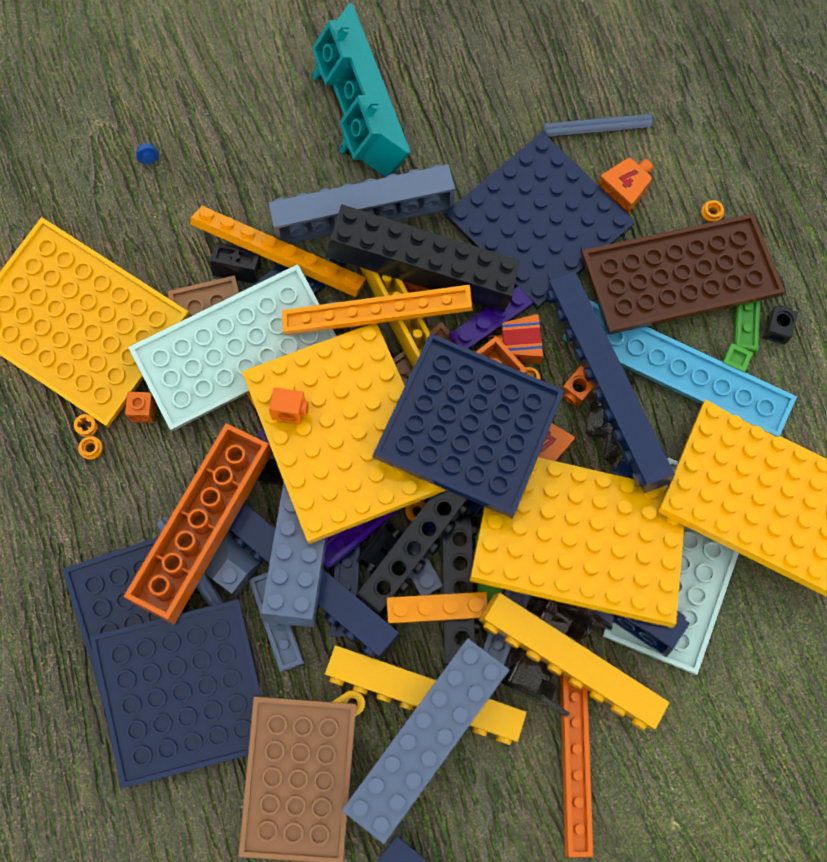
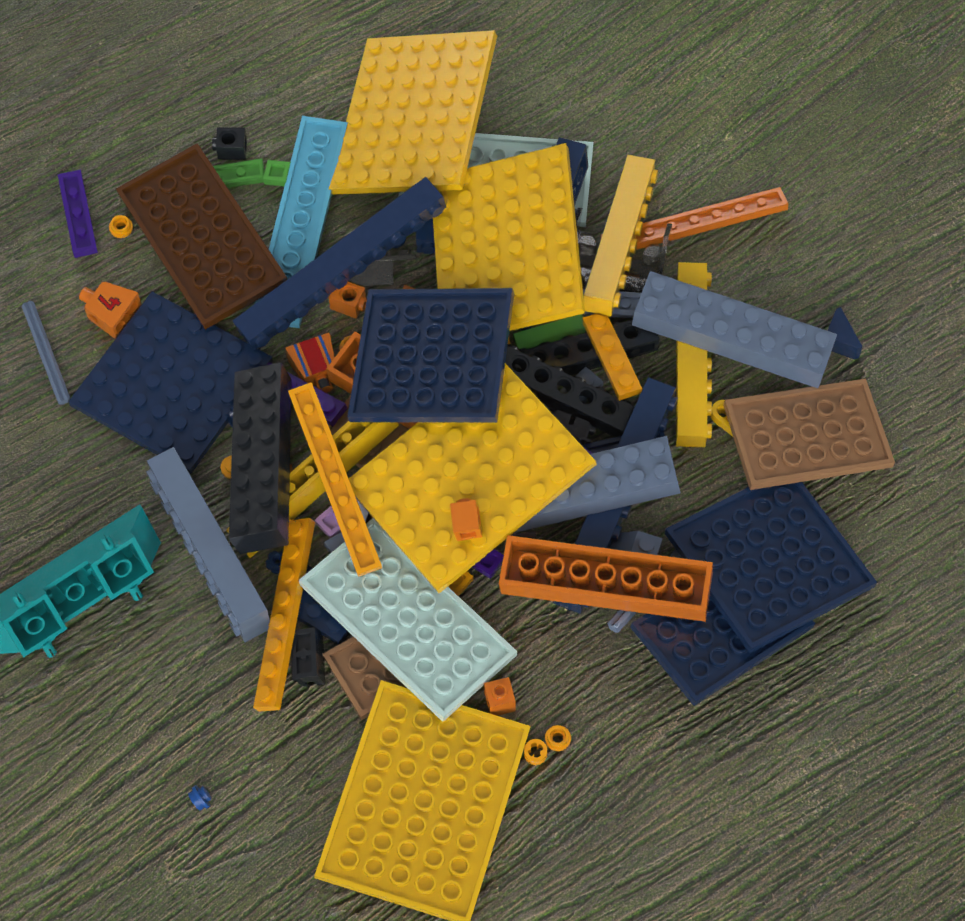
camera: 105 degrees left, 10 degrees down
(280, 635) = (666, 509): sand blue tile -> none
(736, 177) = (77, 213): none -> dark purple plate

